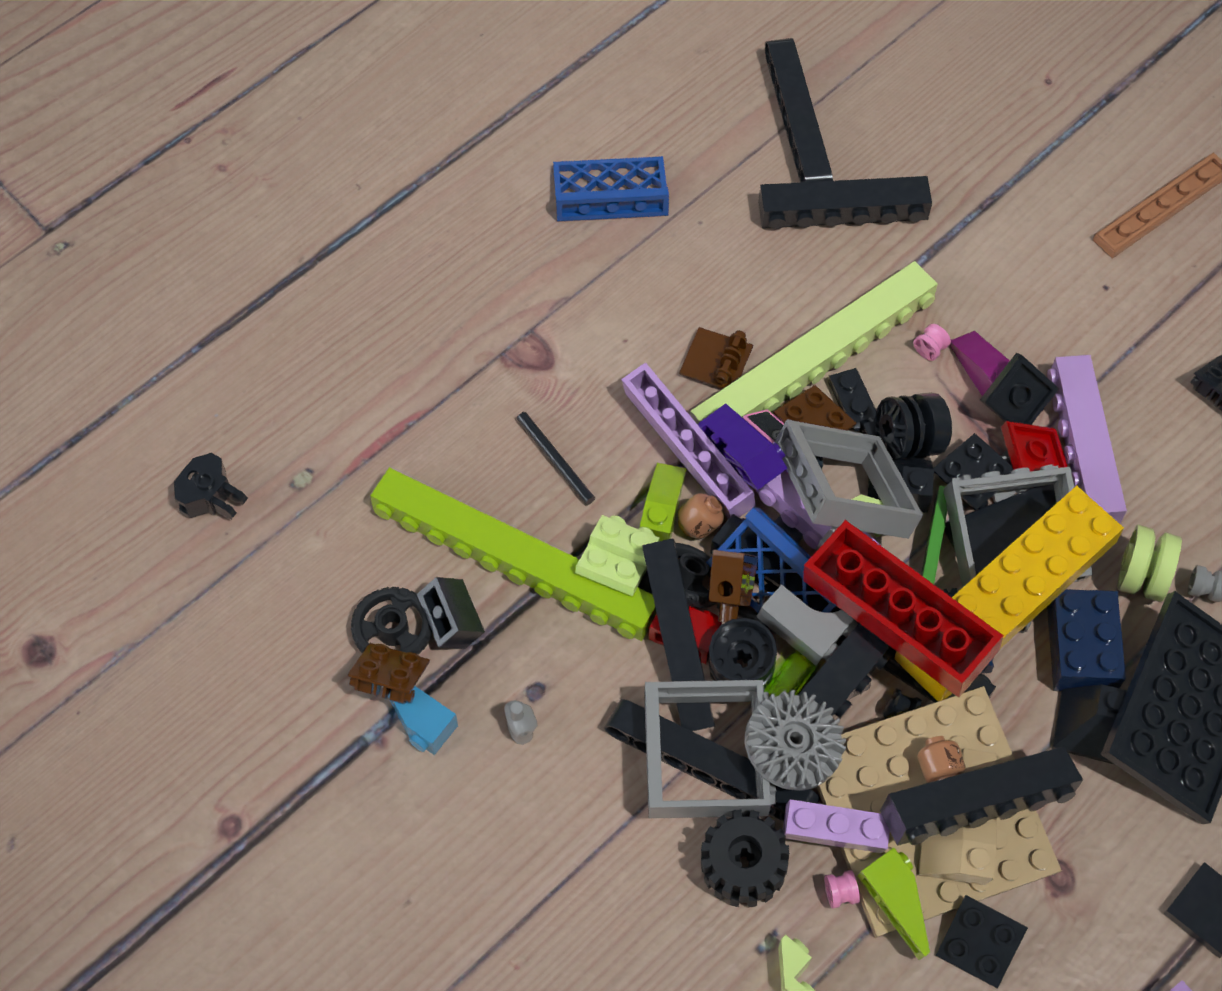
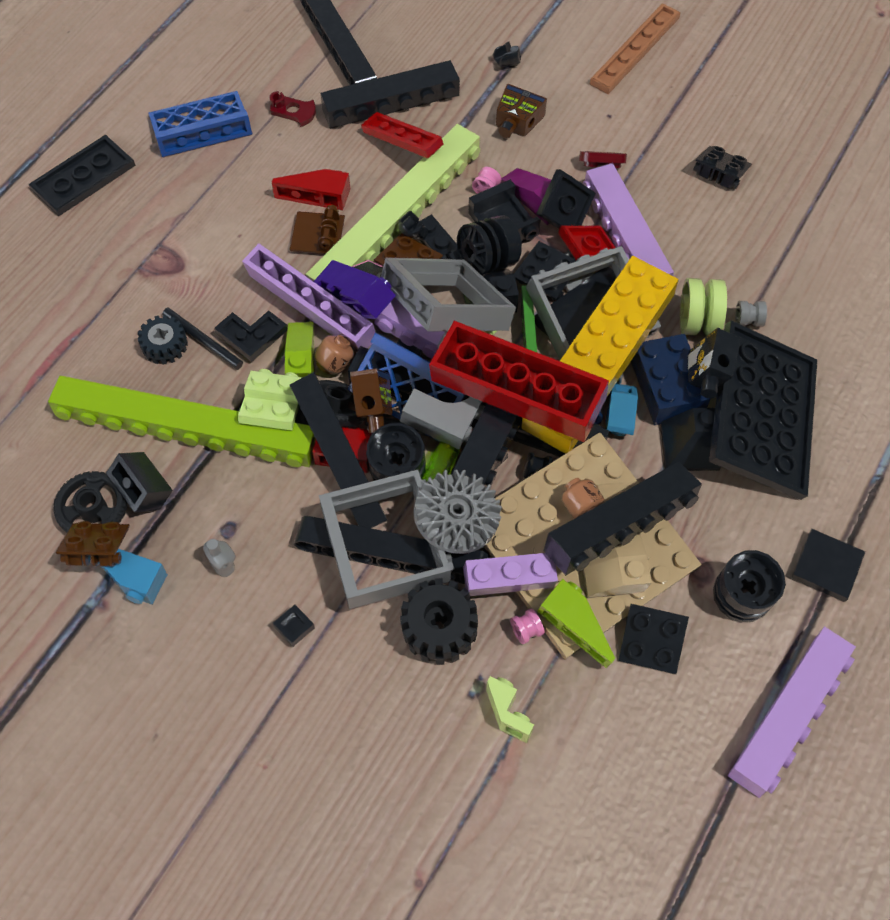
camera: 15 degrees left, 0 degrees up
(461, 223) = (82, 175): none -> black tile
(502, 457) = (158, 348): none -> black wheel
(583, 819) = (293, 625): none -> black plate
(608, 473) = (252, 339): none -> black plate
(729, 304) = (314, 188): none -> red slope
(734, 205) = (303, 116): none -> dark red piece
(823, 380) = (407, 226): none -> black arm
(845, 260) = (402, 134): none -> red plate
(943, 375) = (502, 201): none -> black panel
(994, 259) = (519, 111): none -> reddish brown torso
(999, 181) = (507, 55): none -> black arm
(1019, 664) = (622, 410): none -> dark azure slope
(1070, 340) = (592, 158): none -> dark red plate
(1111, 893) = (758, 575): none -> black wheel
(1137, 637) = (713, 361): none -> black torso

